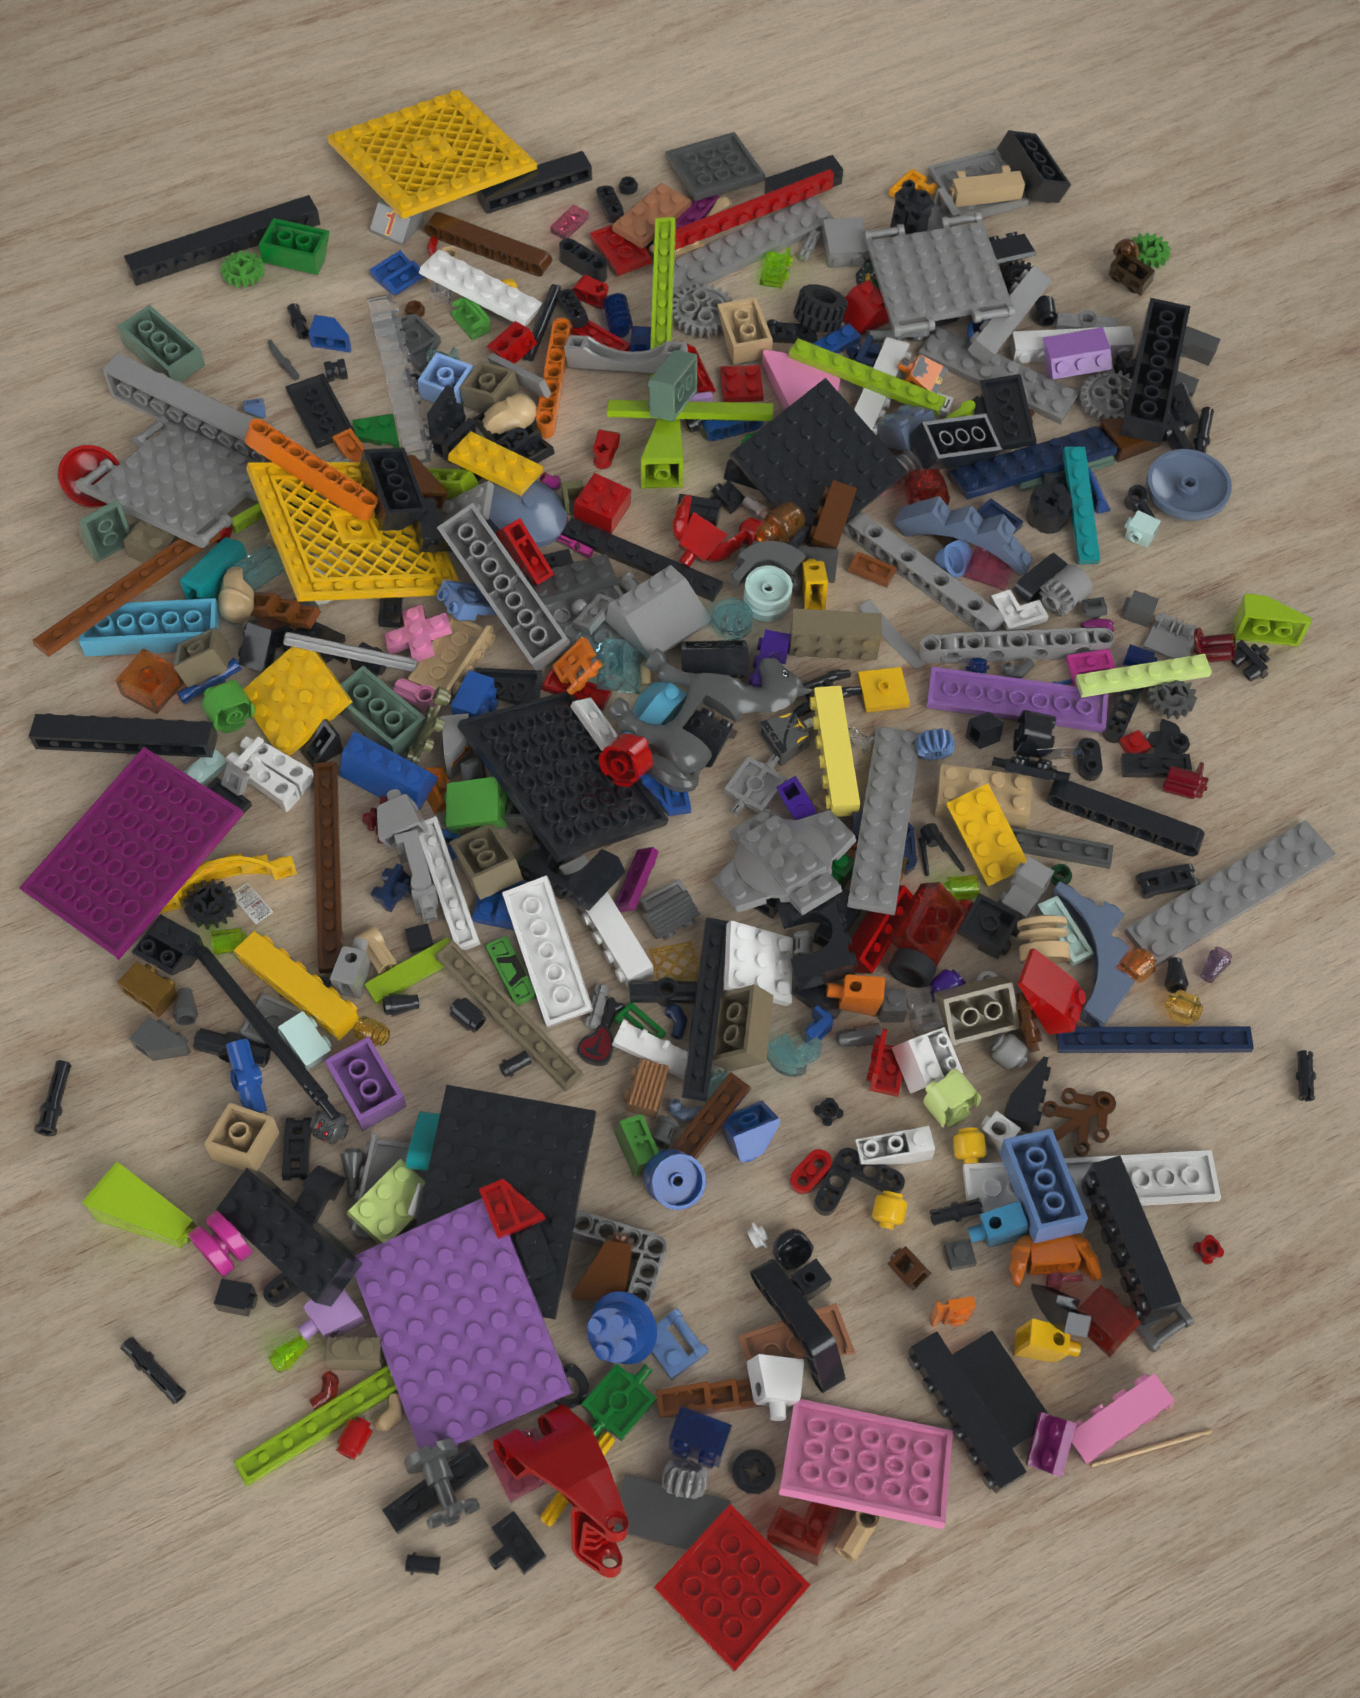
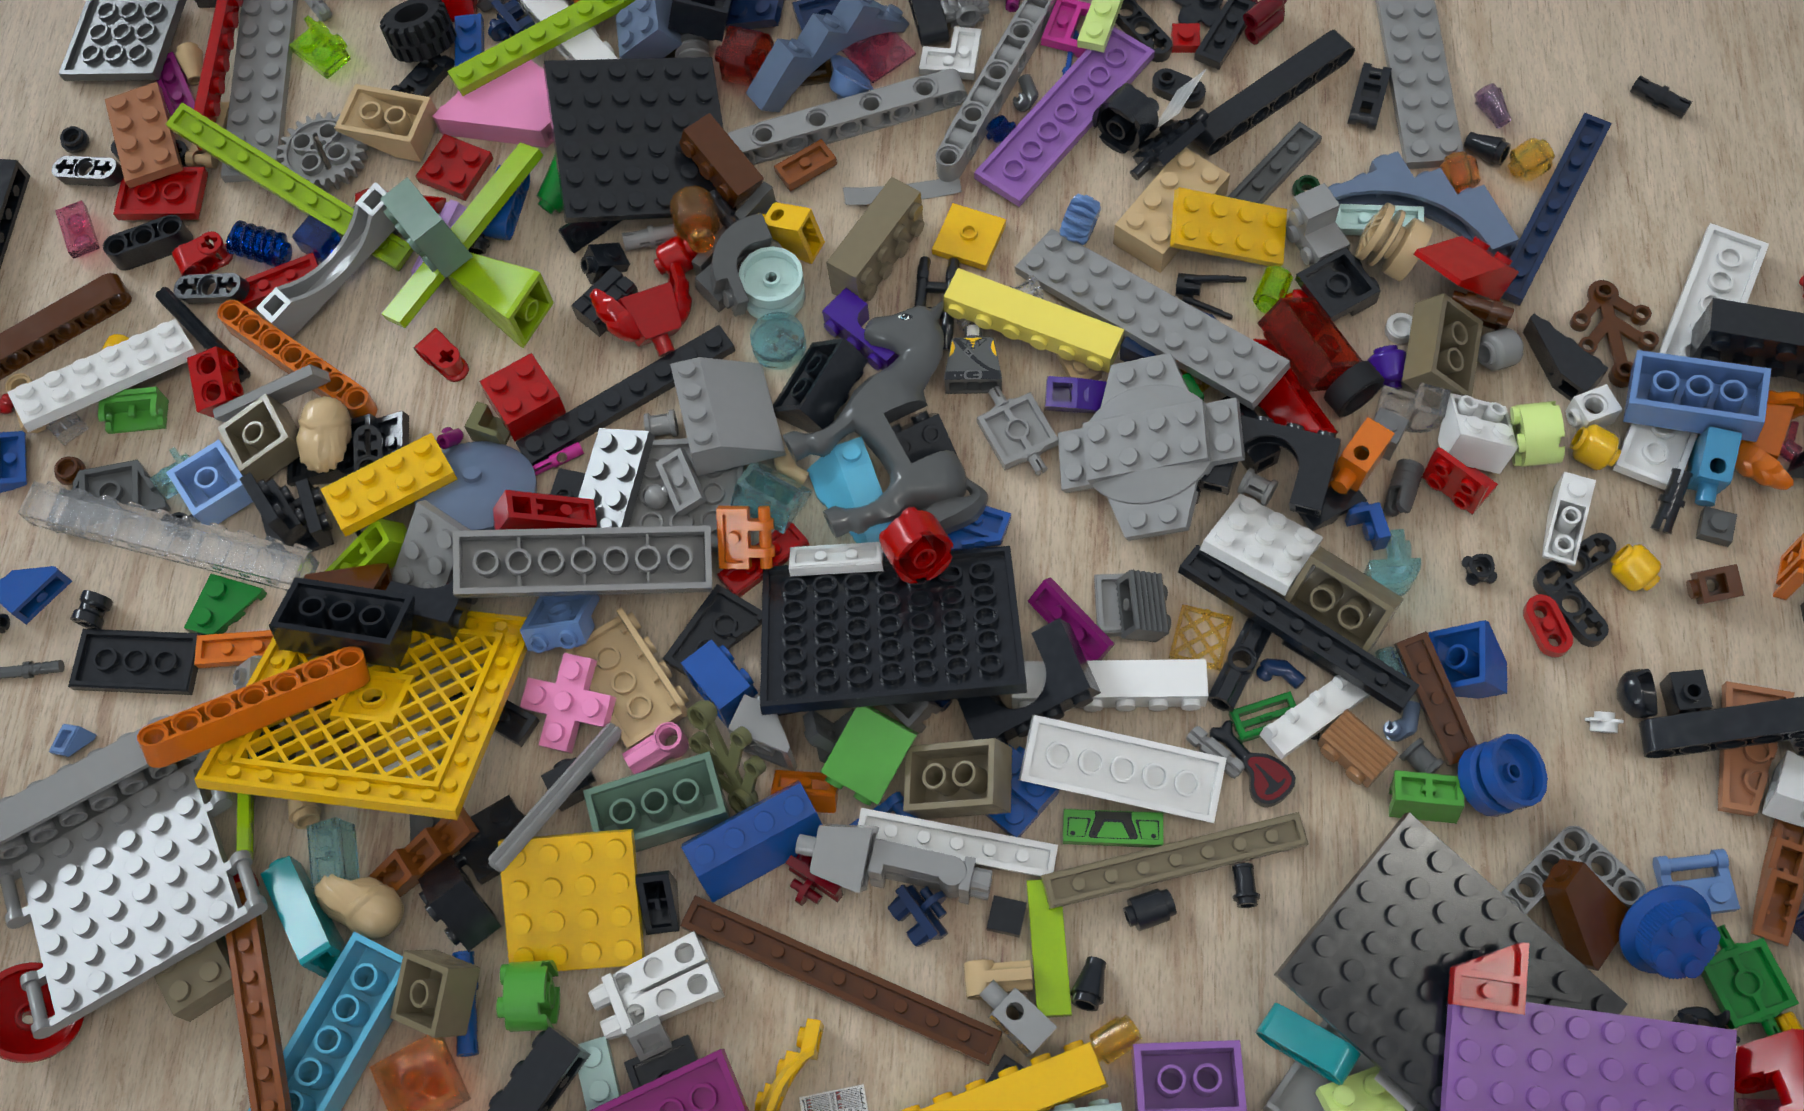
camera: 50 degrees left, 5 degrees up
(104, 531) = (141, 1033): sand green slope -> none
(984, 730) = (1090, 163): black brick -> none

